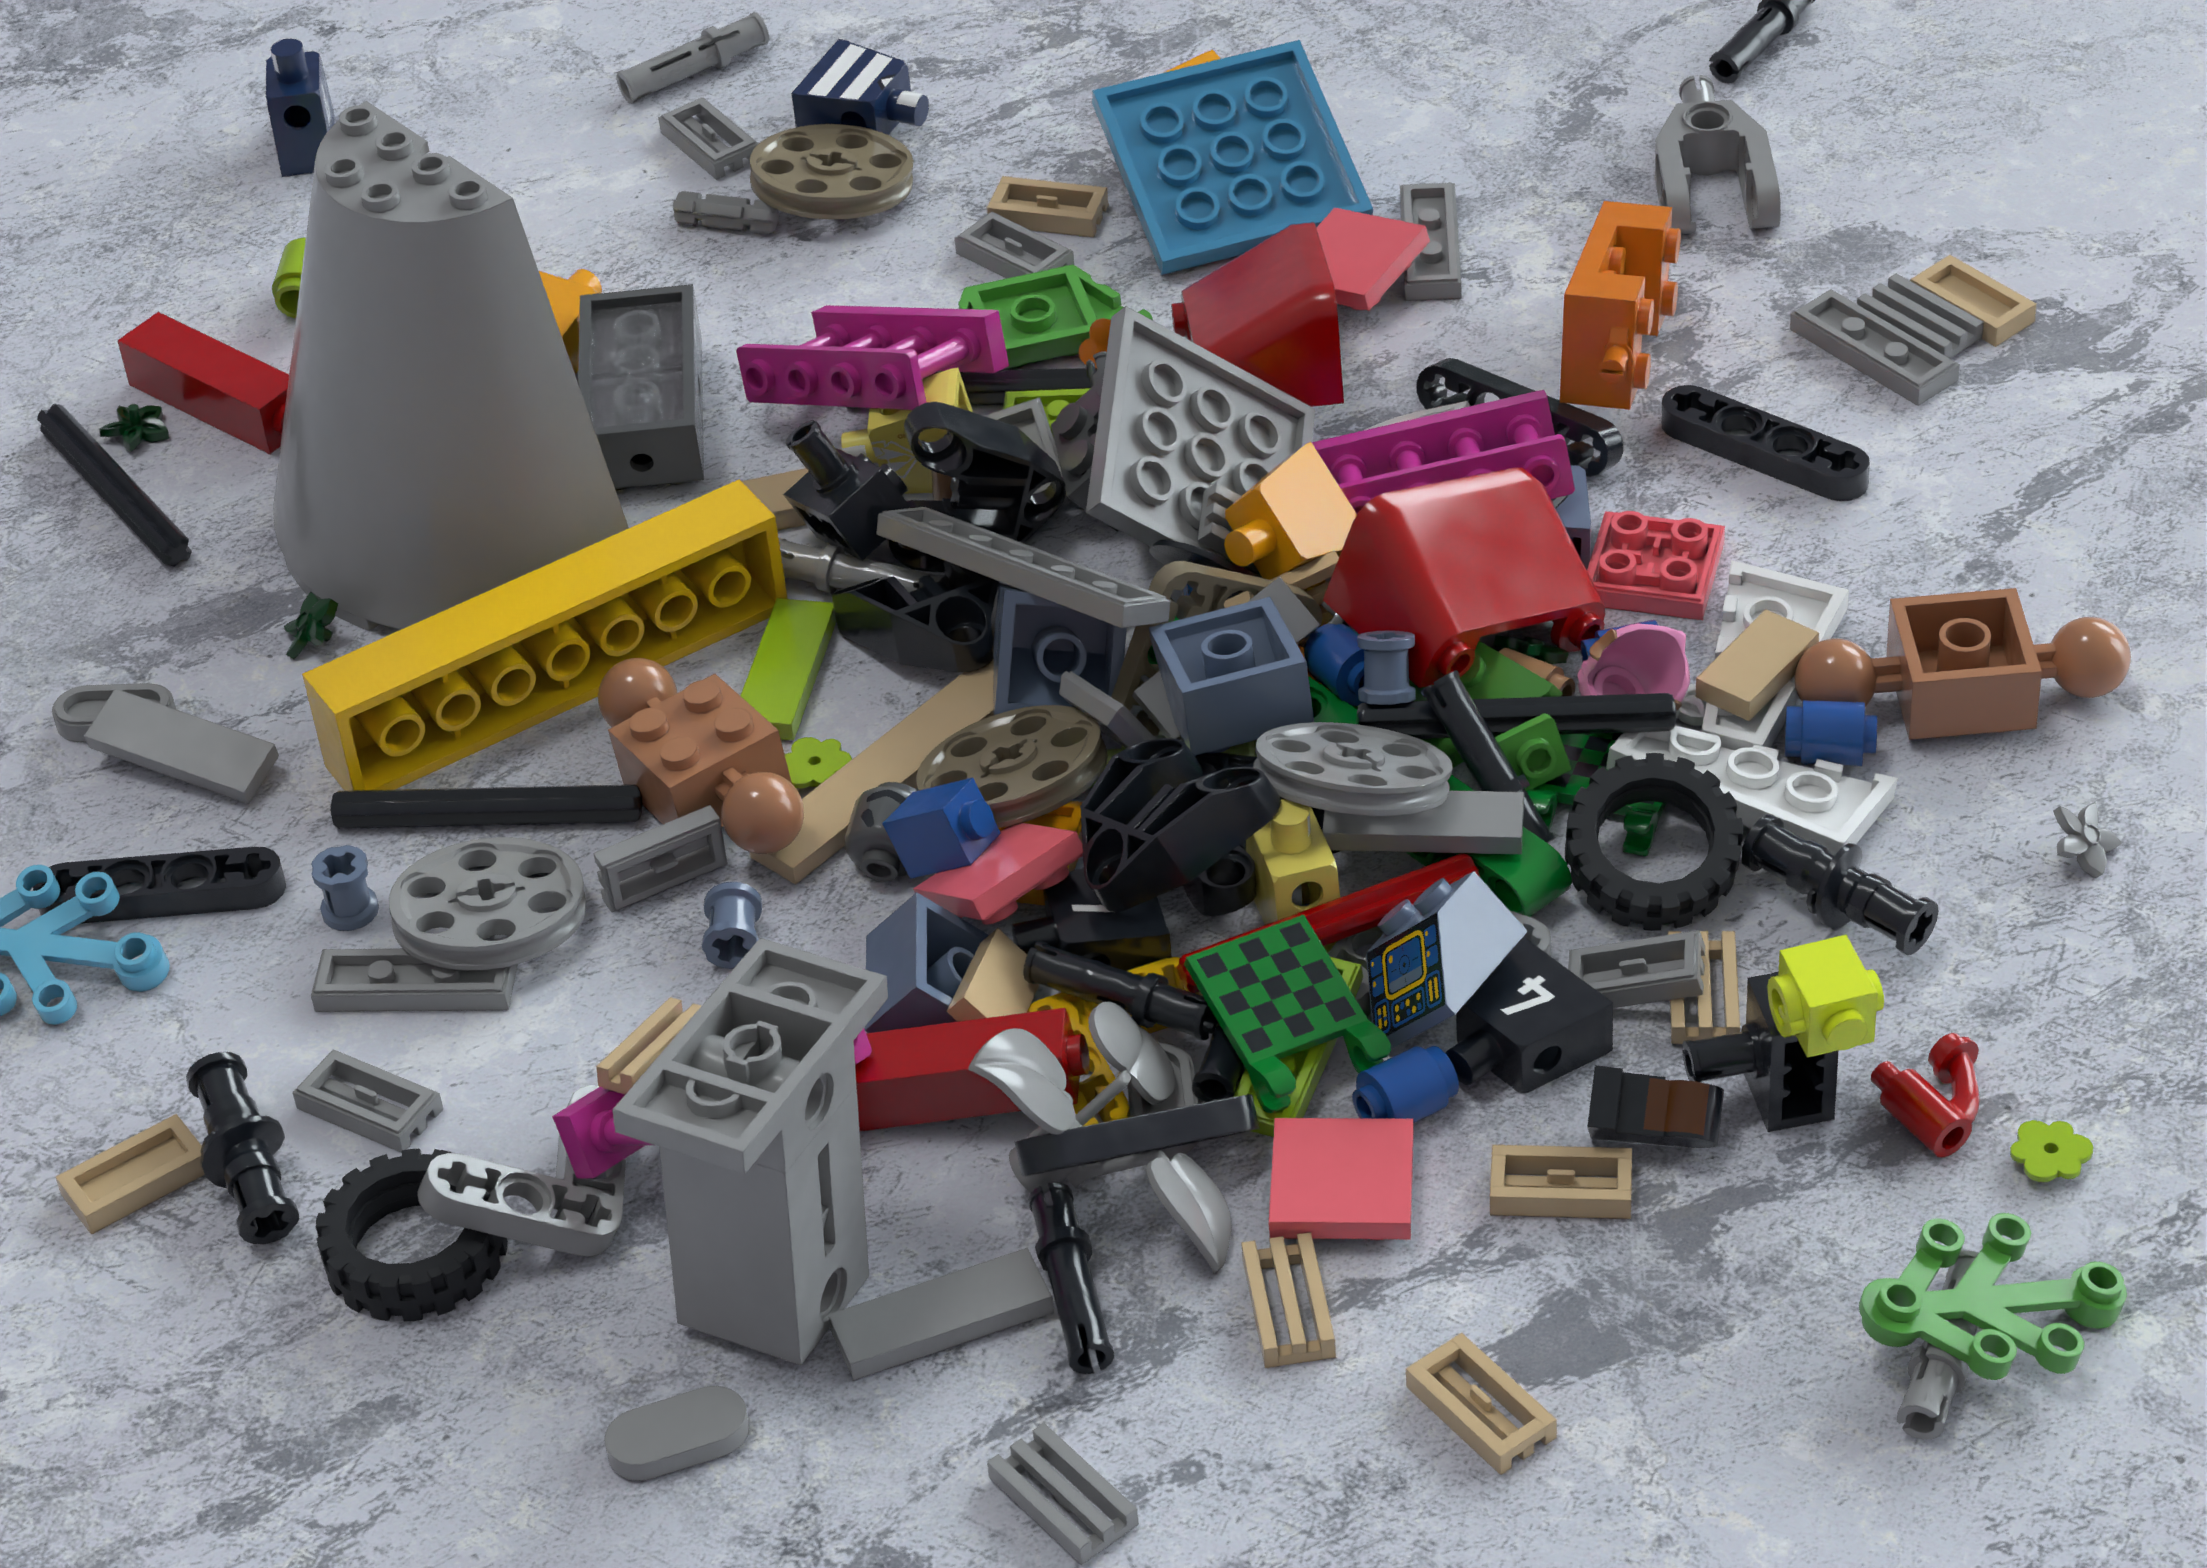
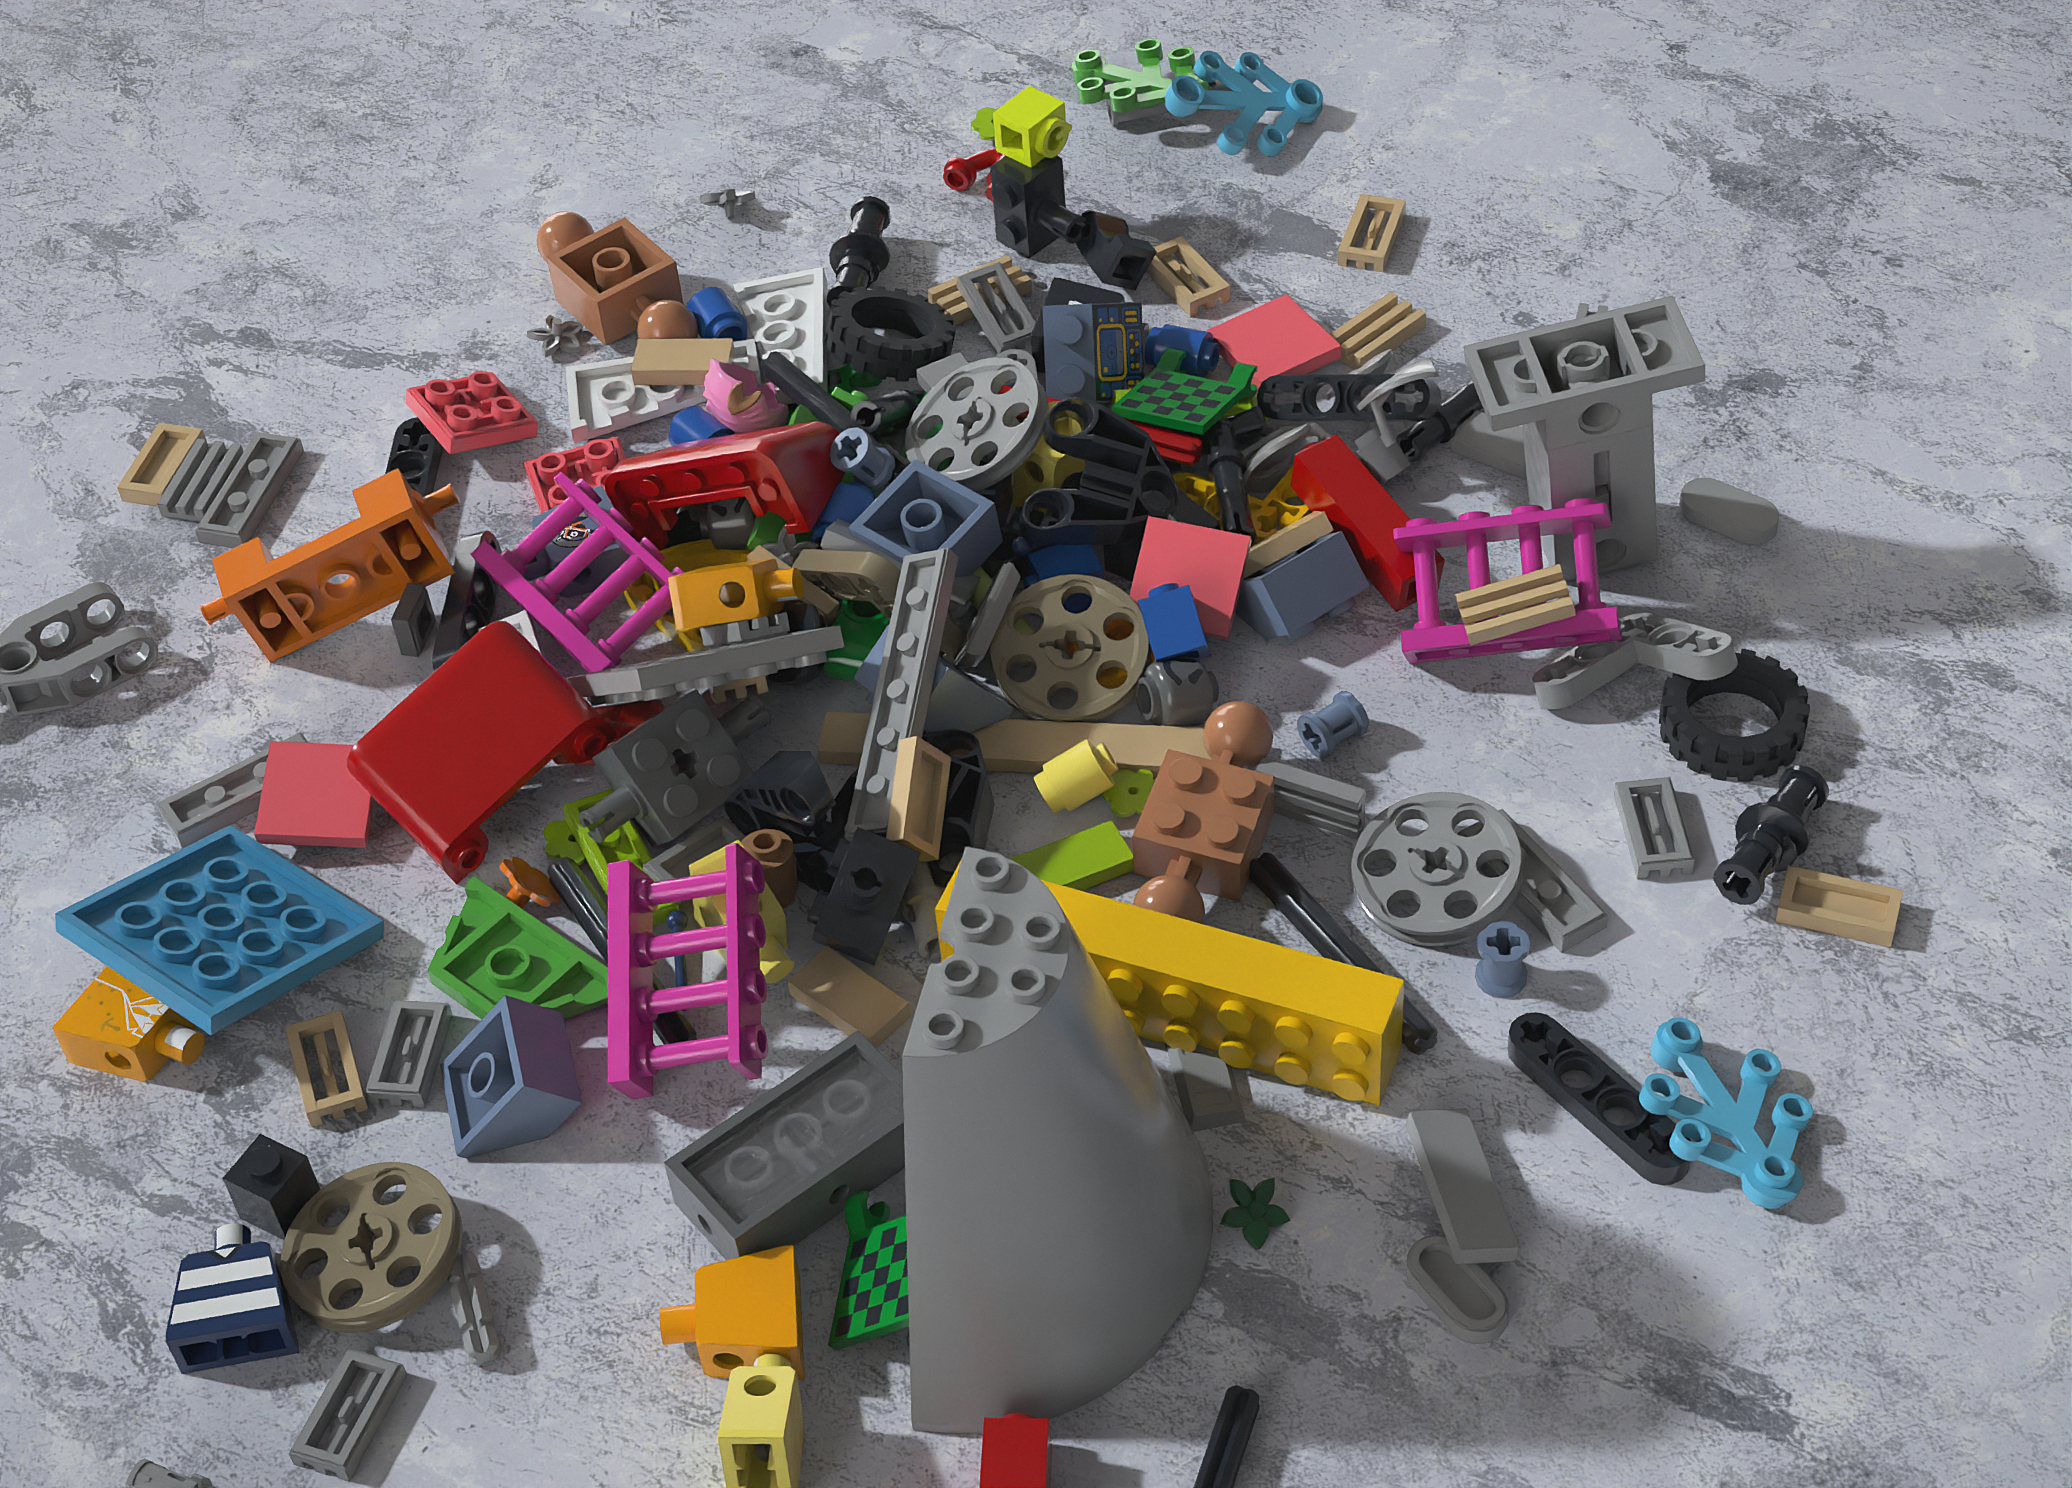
camera: 125 degrees left, 5 degrees up
(856, 711) = (1076, 776): none -> light yellow brick
(896, 545) = (919, 797): none -> tan tile
(902, 273) = (510, 1079): none -> sand blue slope
(938, 133) = (270, 1185): none -> black brick
(1536, 368) = (413, 620): none -> dark grey tile
(1838, 1378) = (1297, 100): none -> medium azure plant
(1840, 509) = (471, 412): none -> coral tile

